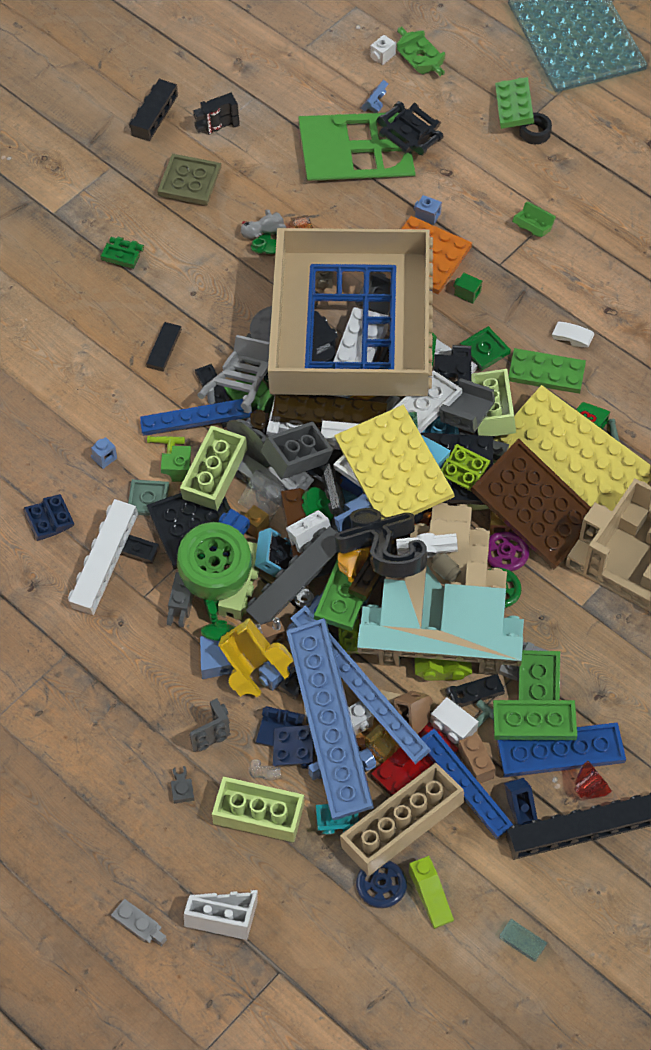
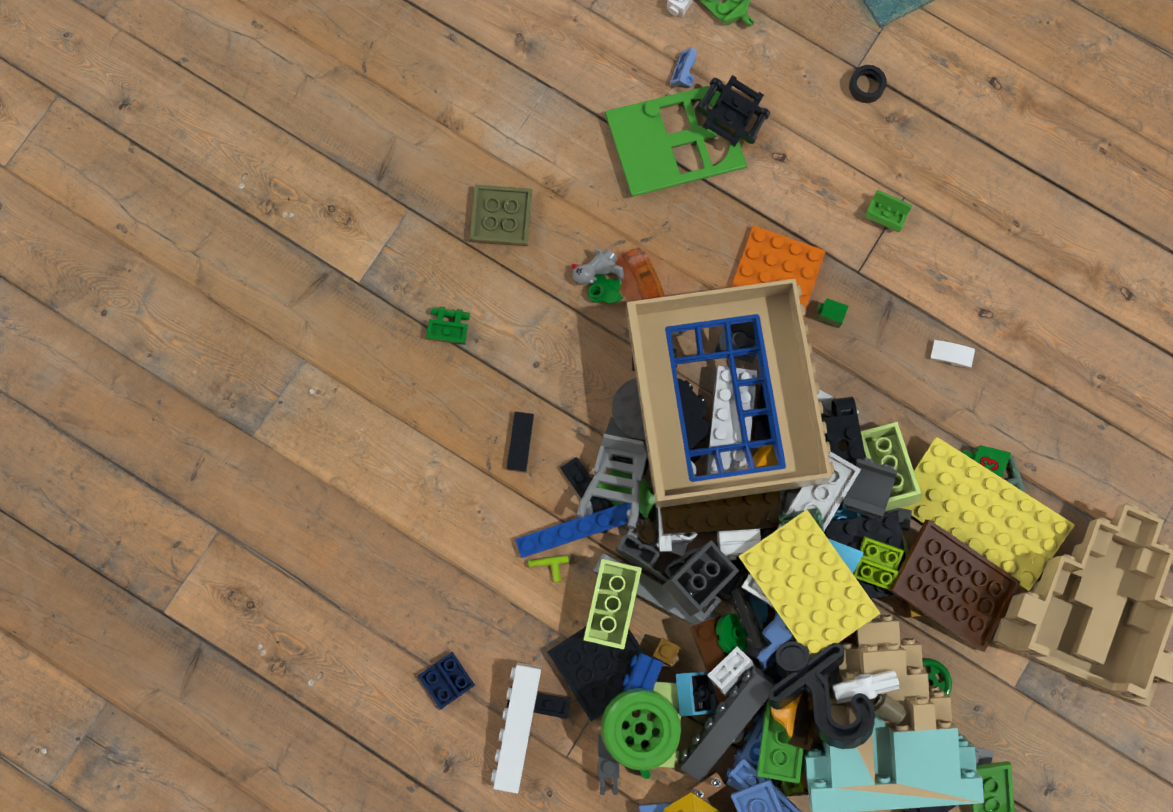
camera: 15 degrees left, 20 degrees up
(101, 449) = (486, 593): medium blue brick -> none
(146, 492) = (543, 634): sand green tile -> none
(153, 110) = (440, 126): black brick -> none
(177, 463) = (570, 595): bright green brick -> none
(216, 630) = (657, 799): green dish -> none
(217, 114) = (514, 123): black hips -> none
(263, 493) = (667, 620): clear plate -> none
(427, 209) = (770, 215): medium blue brick -> none
(486, 348) = (865, 387): green plate -> none
(506, 537) = (940, 649): magenta plate -> none
(514, 102) = (840, 54): bright green plate -> none
(547, 370) = (932, 404): bright green plate -> none

